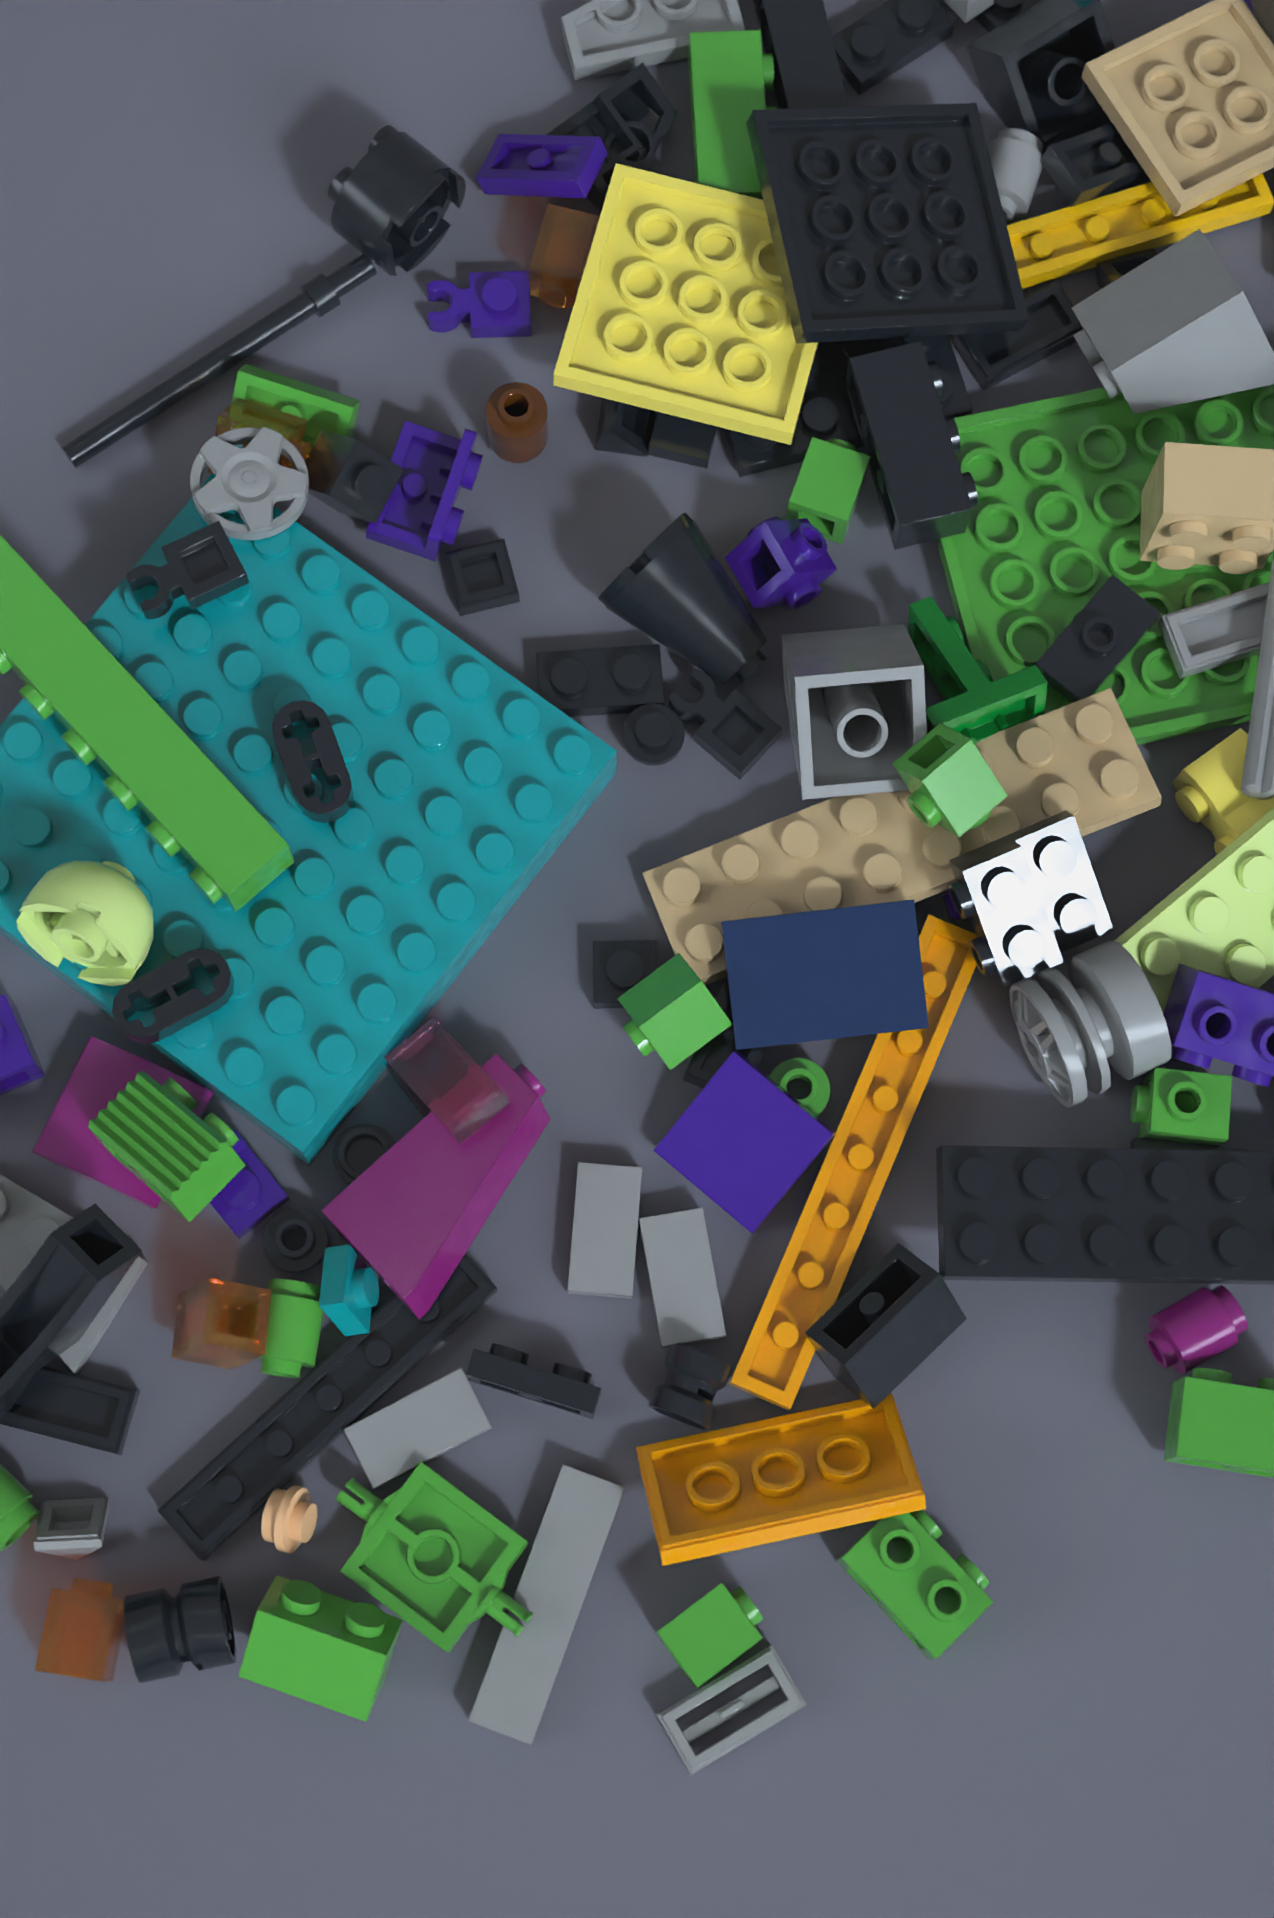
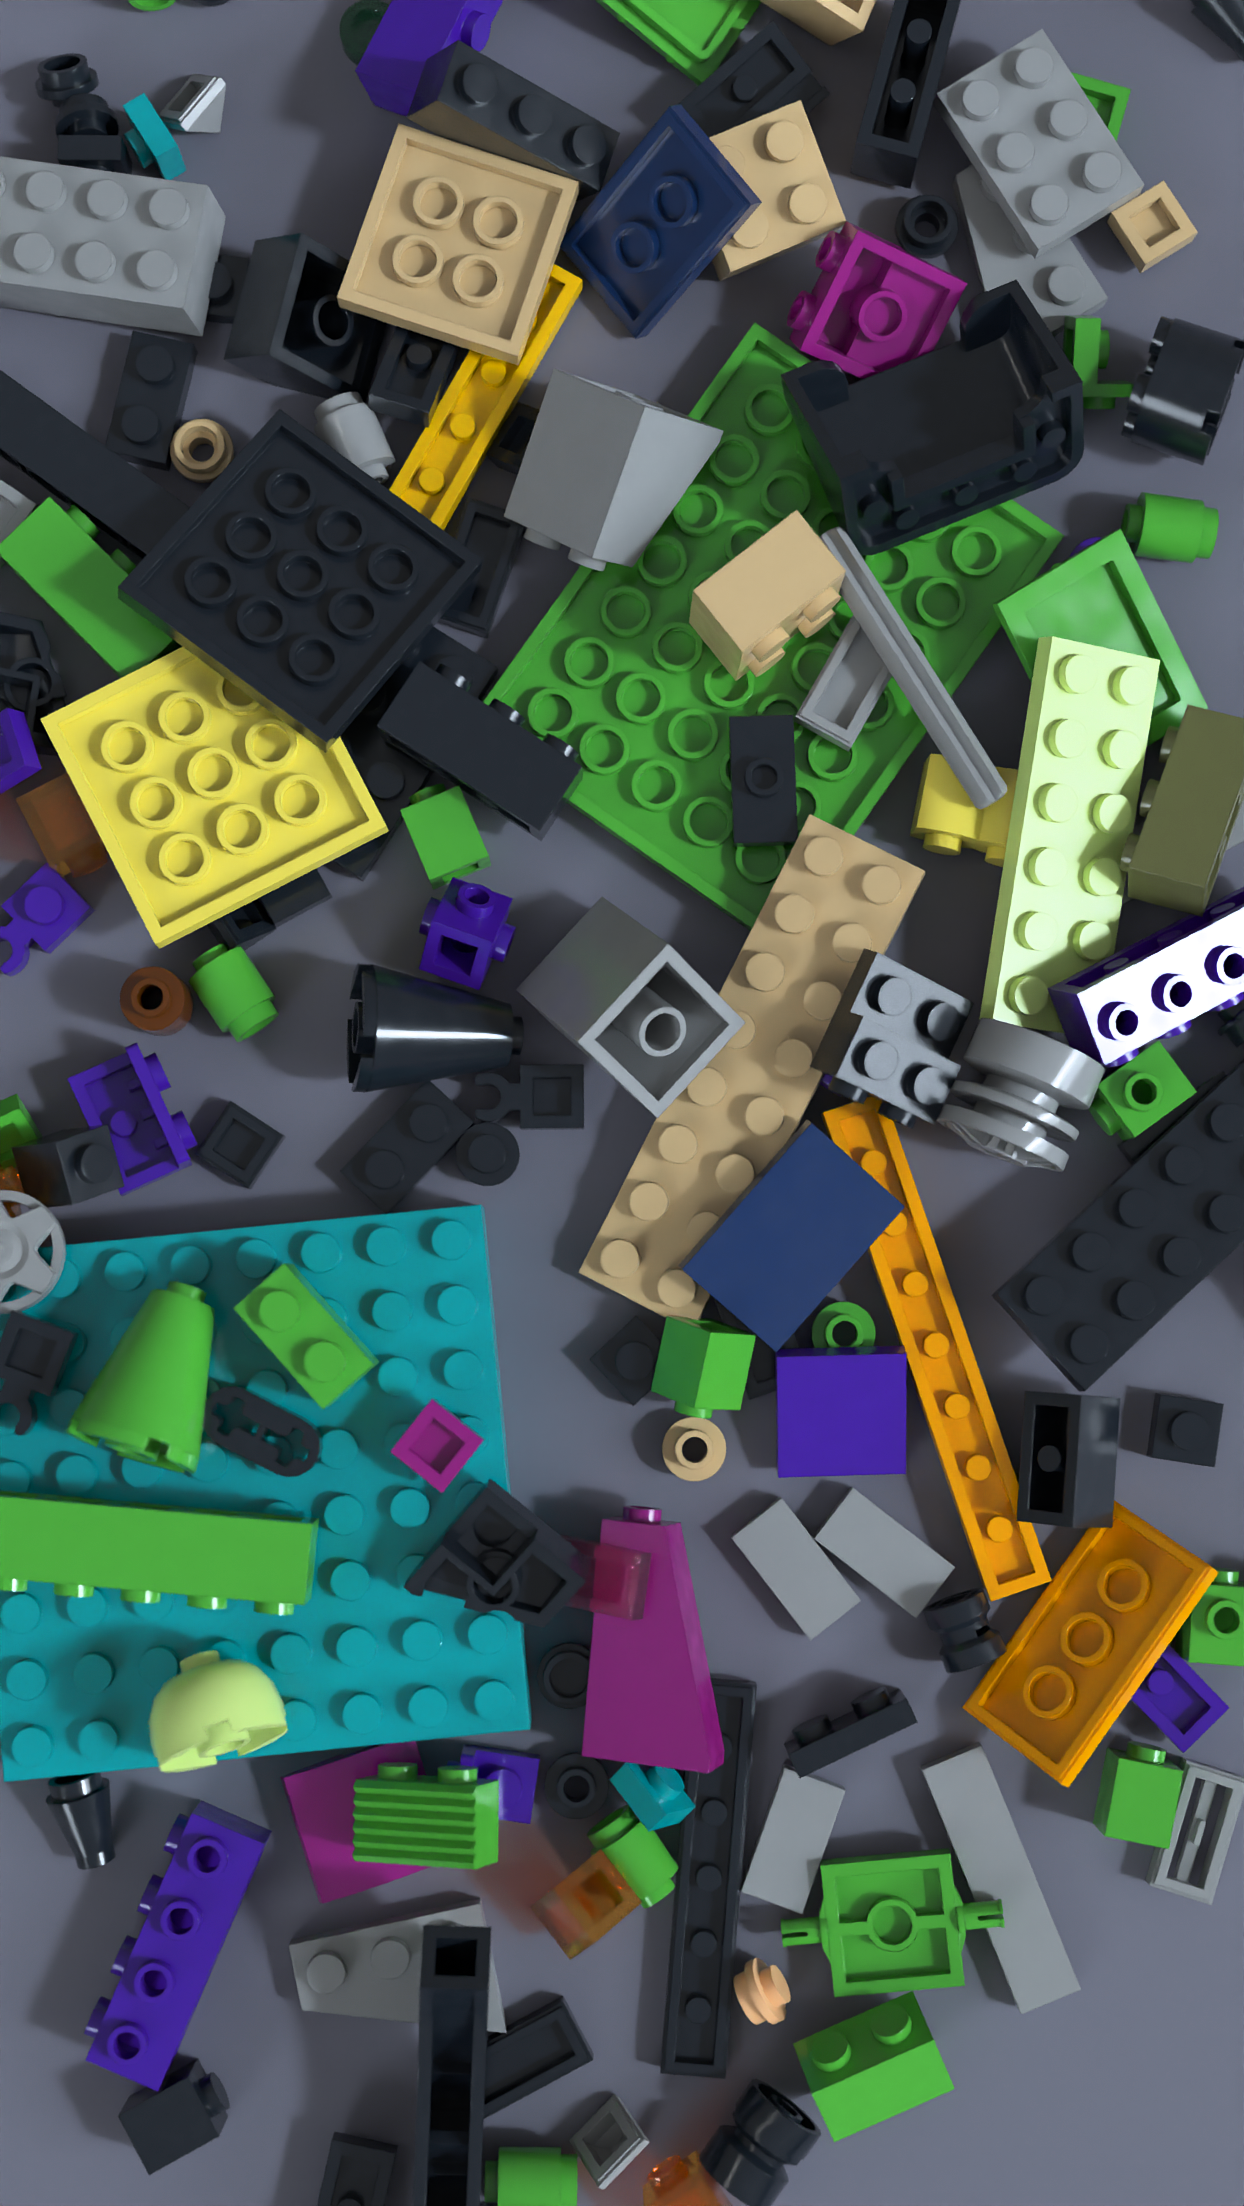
camera: 45 degrees left, 10 degrees up
(166, 982) = (313, 1702): black beam -> none
(266, 654) = (154, 1384): none -> bright green cone
(397, 1004) = (502, 1561): none -> black slope
(408, 717) = (306, 1335): none -> bright green brick
(428, 879) = (437, 1445): none -> magenta plate
(576, 466) = (233, 991): none -> bright green brick
(614, 1093) = (688, 1428): none -> tan plate
(806, 1583) = (1178, 1700): none -> dark purple plate
(895, 82) = (197, 433): none -> tan plate
(949, 781) = (761, 1011): brick -> none
(972, 699) = (721, 917): green bracket -> none
(995, 1395) = (1185, 1430): none -> black plate

